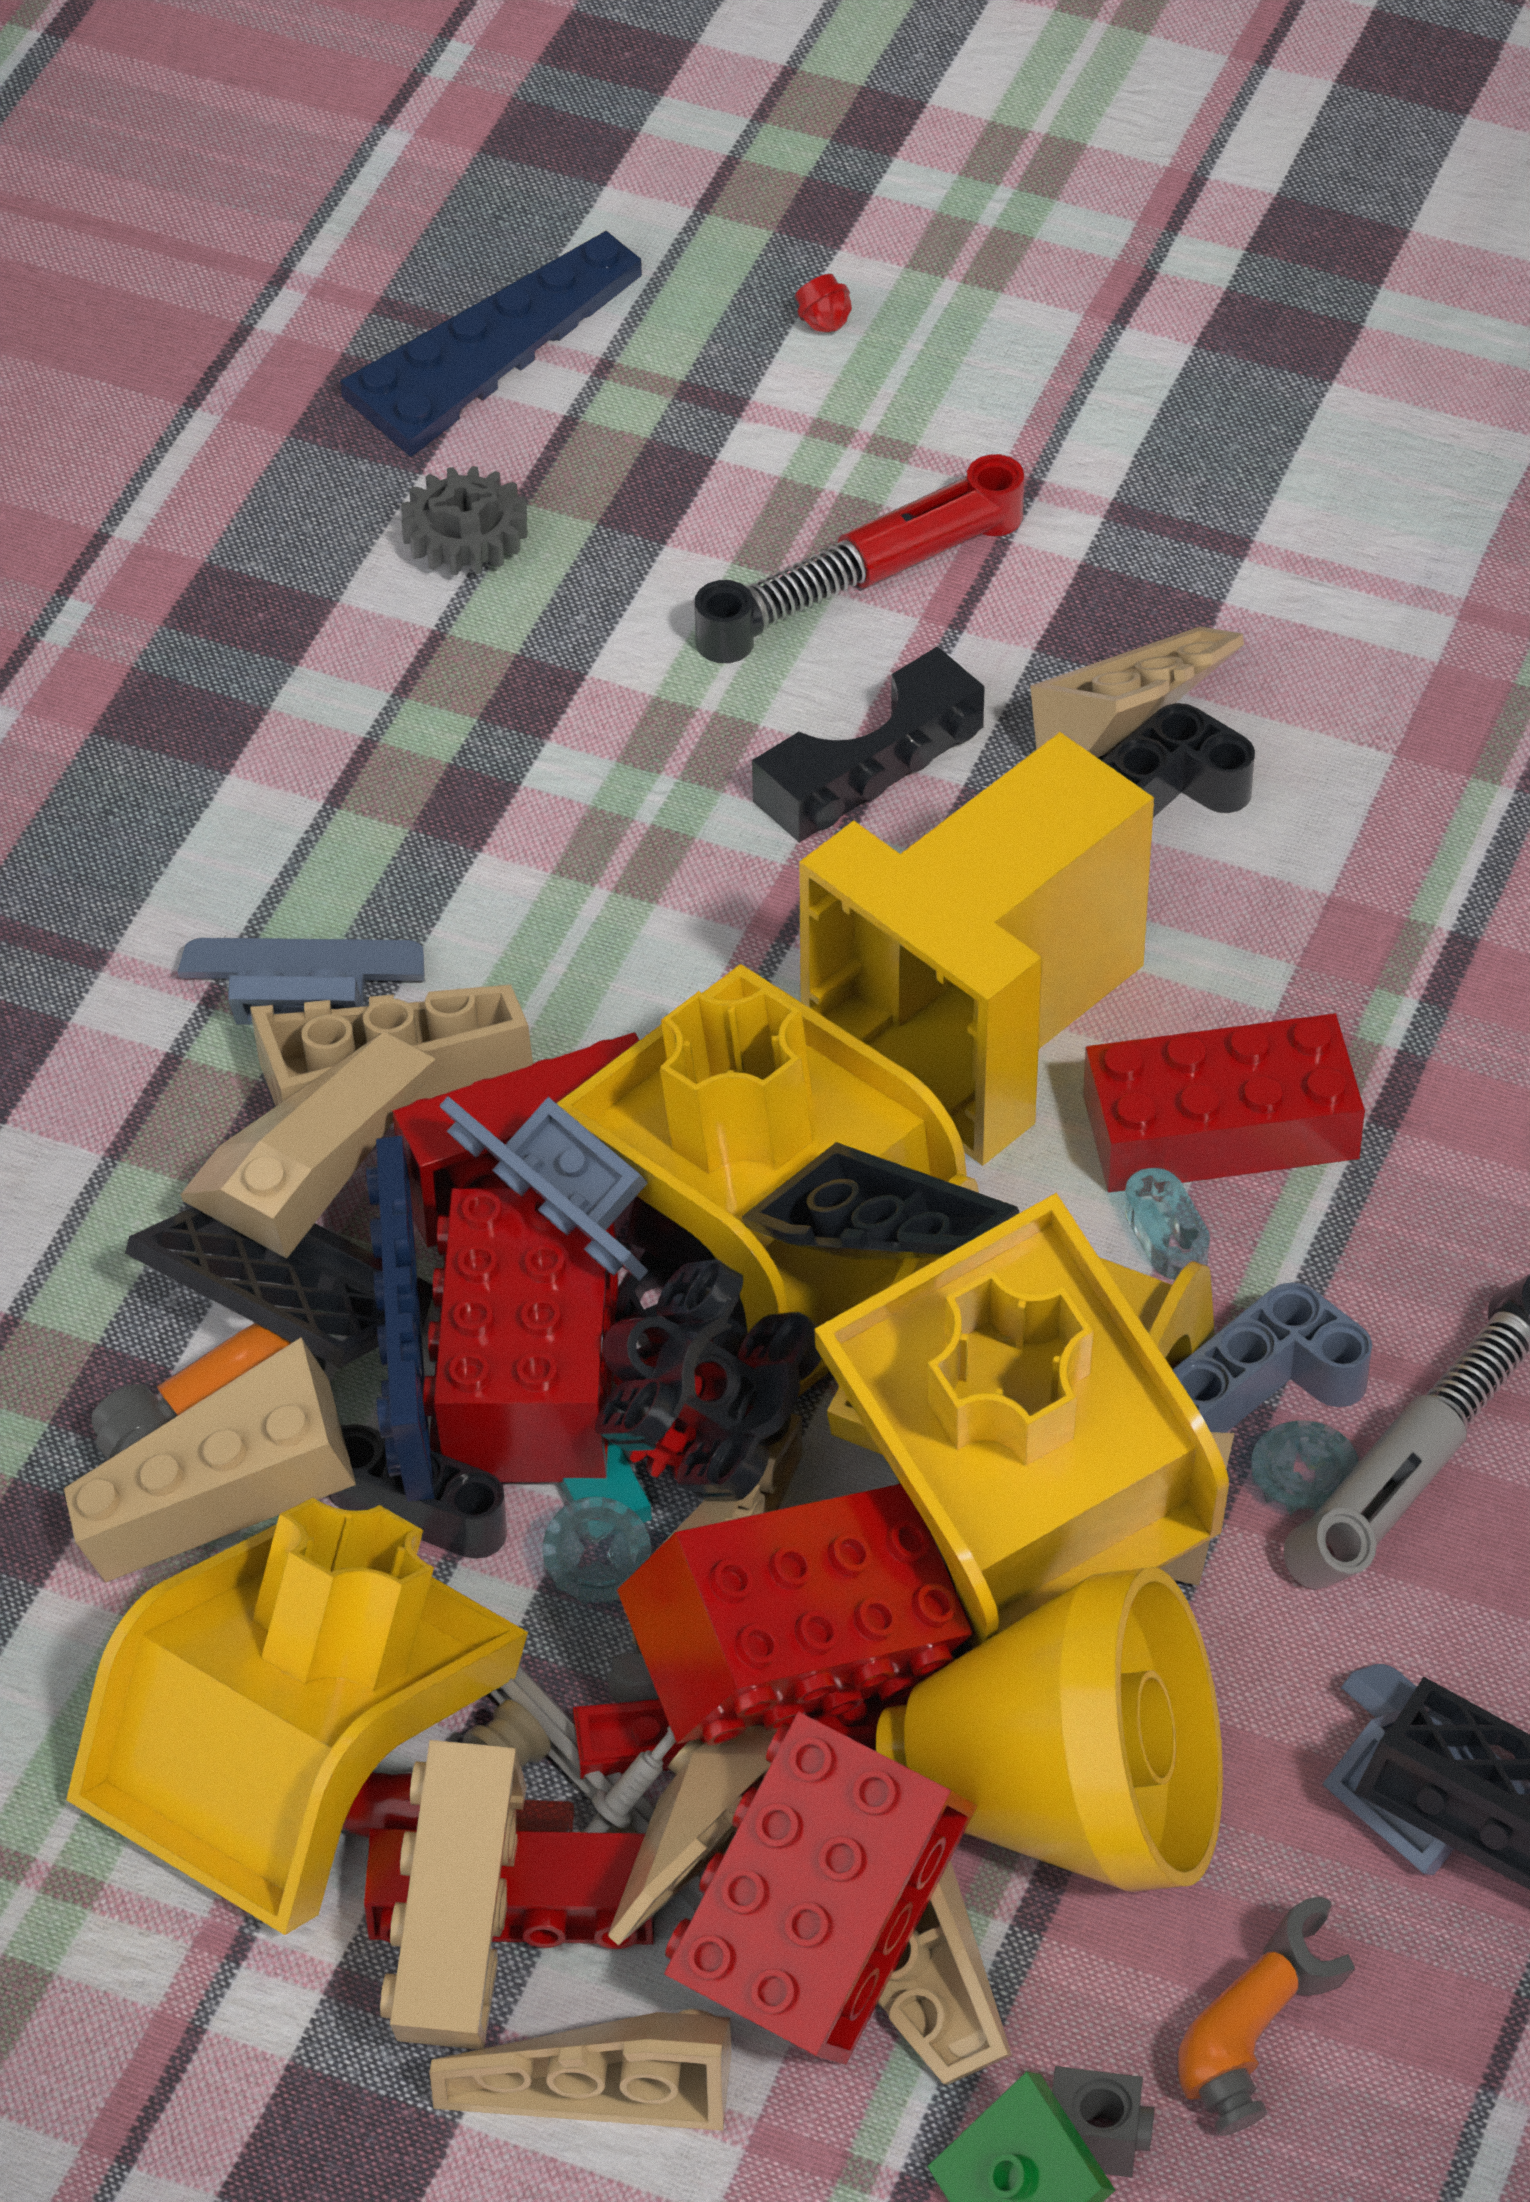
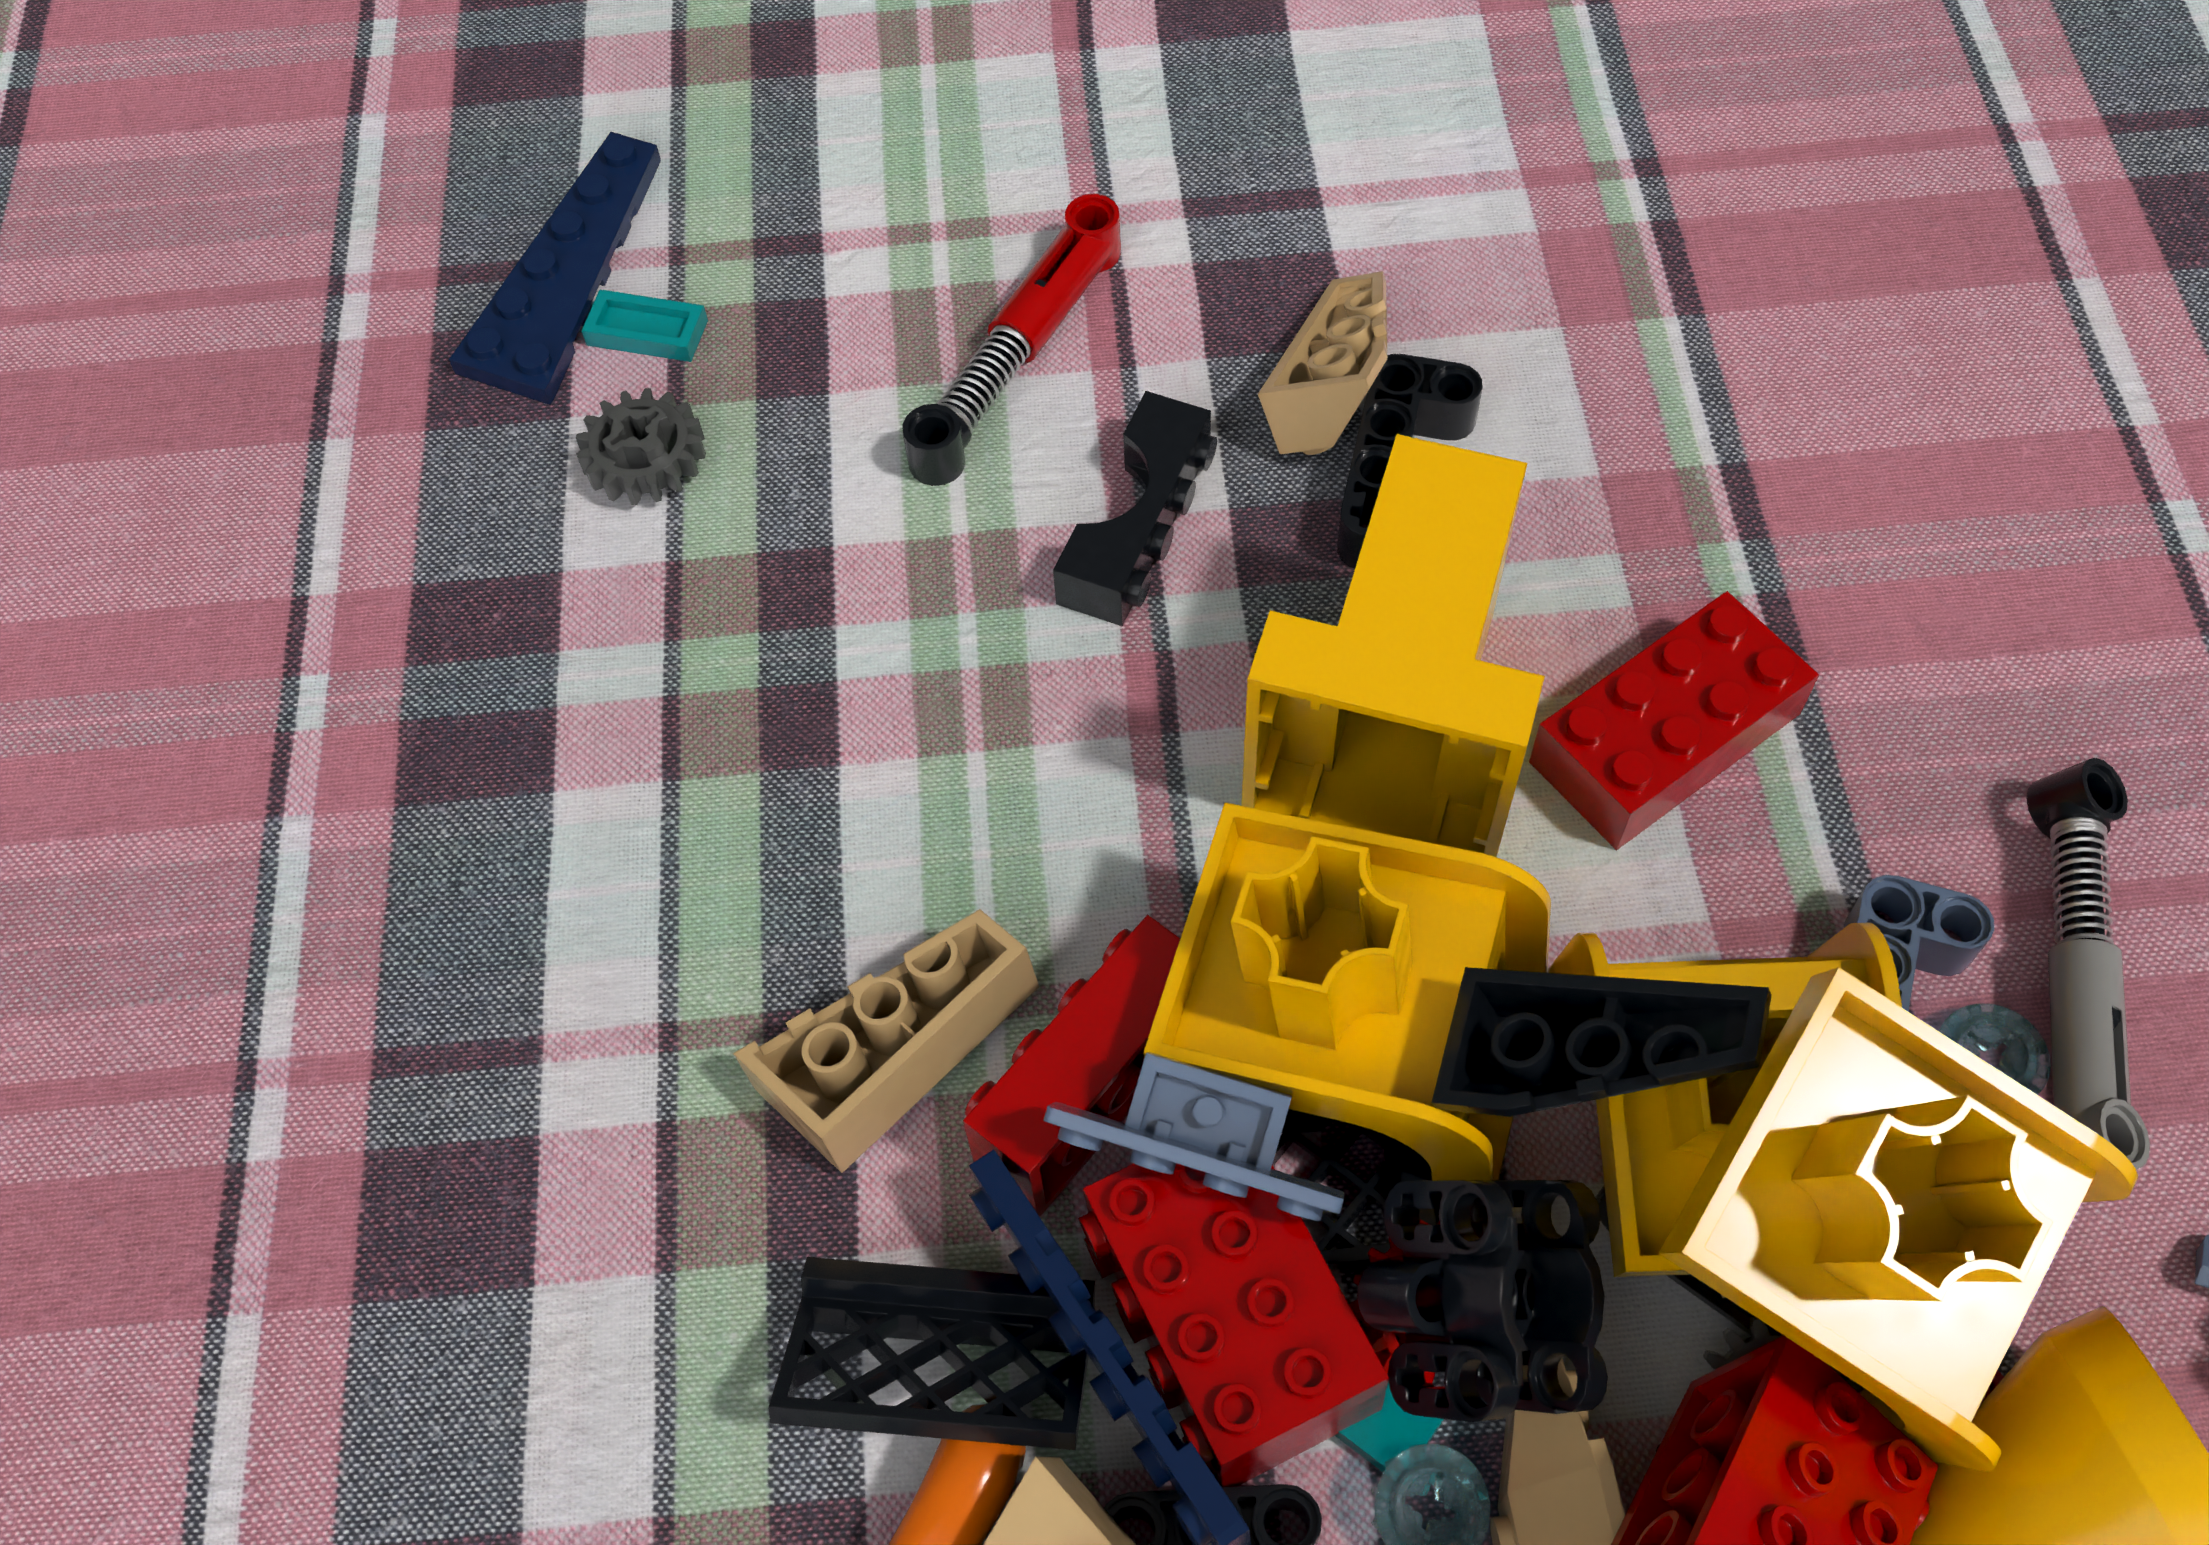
camera: 25 degrees left, 10 degrees up
(299, 970) = (746, 979): sand blue plate -> none
(301, 1153) = (881, 1207): tan wedge -> none
(534, 419) = (645, 325): none -> teal tile
(824, 303) = (840, 123): red plate -> none
(1178, 1219) = (1697, 861): clear light blue beam -> none

